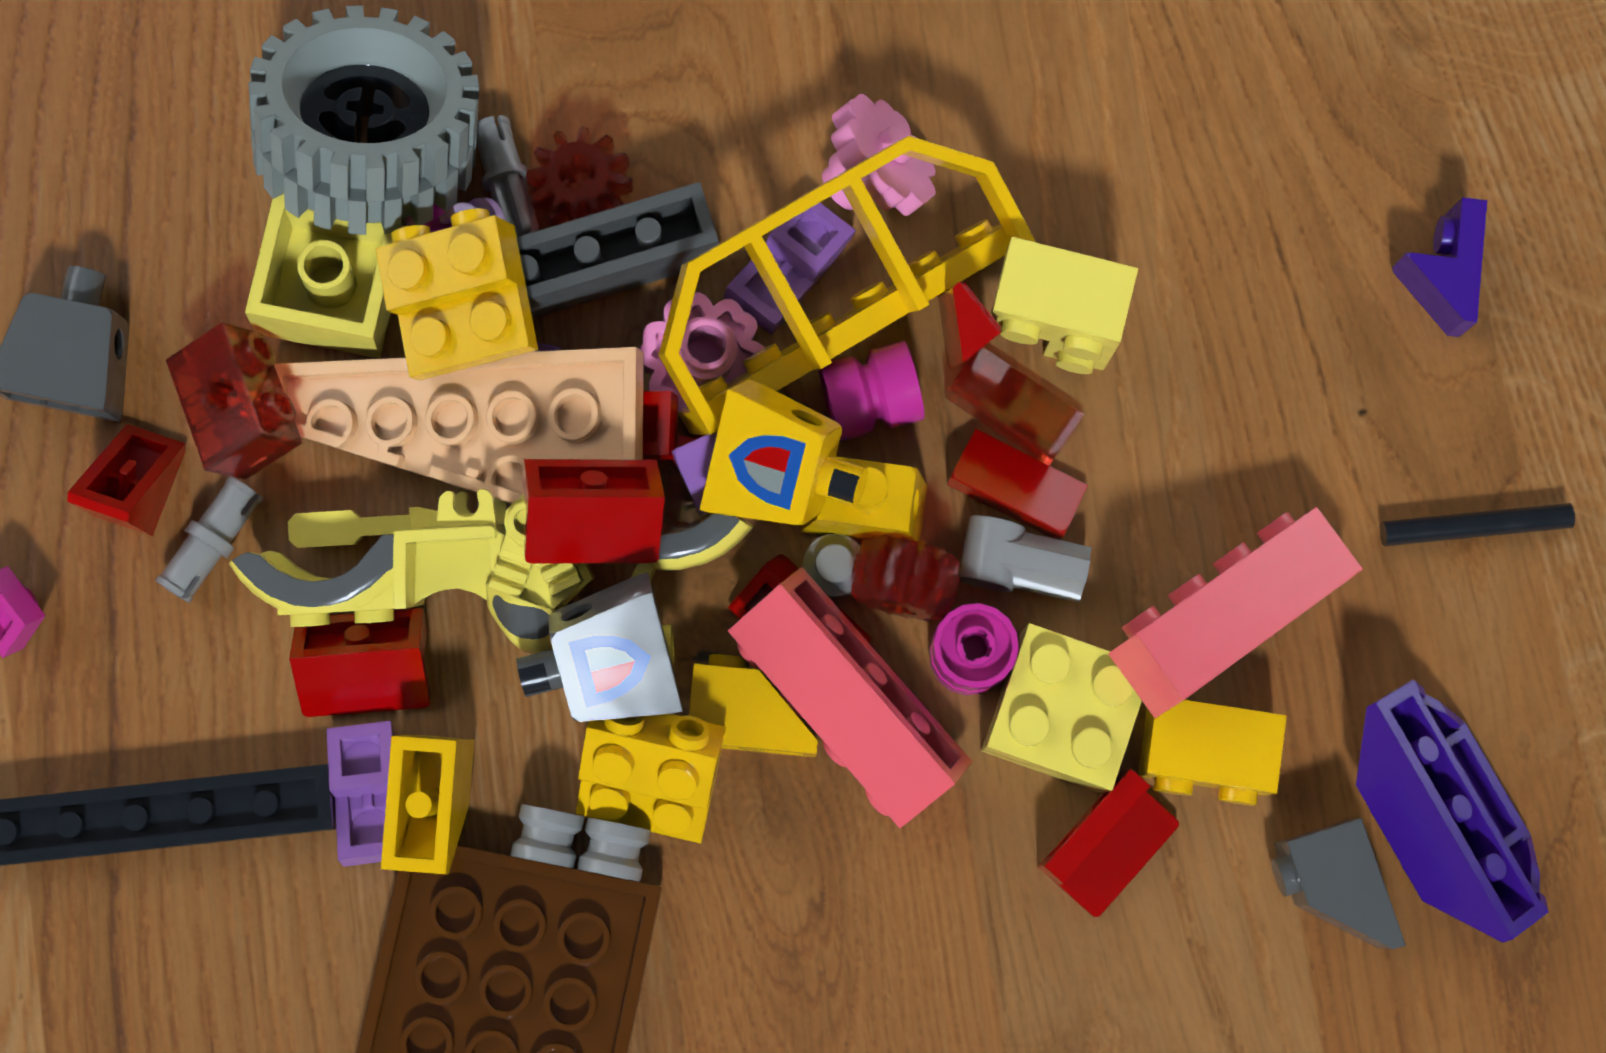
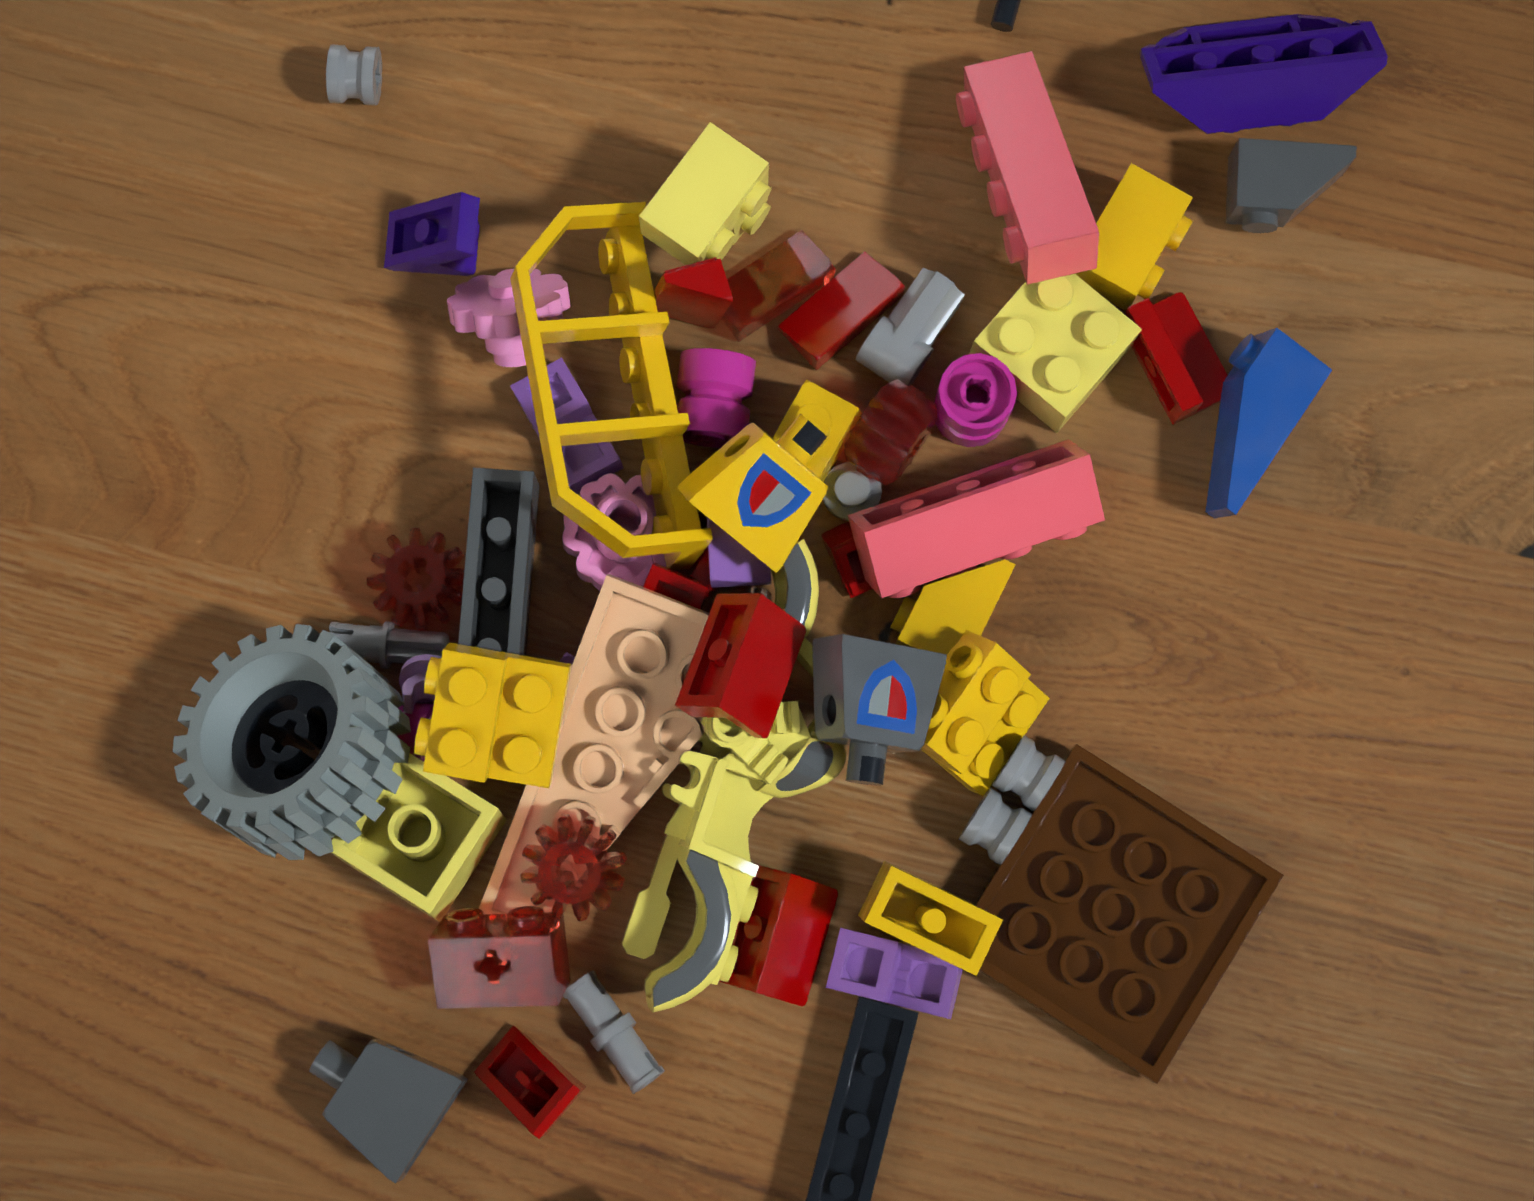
camera: 70 degrees left, 0 degrees up
(347, 416) = (562, 884): none -> clear red gear
(926, 64) = (435, 236): none -> dark purple slope
(1084, 948) = (1257, 412): none -> blue slope

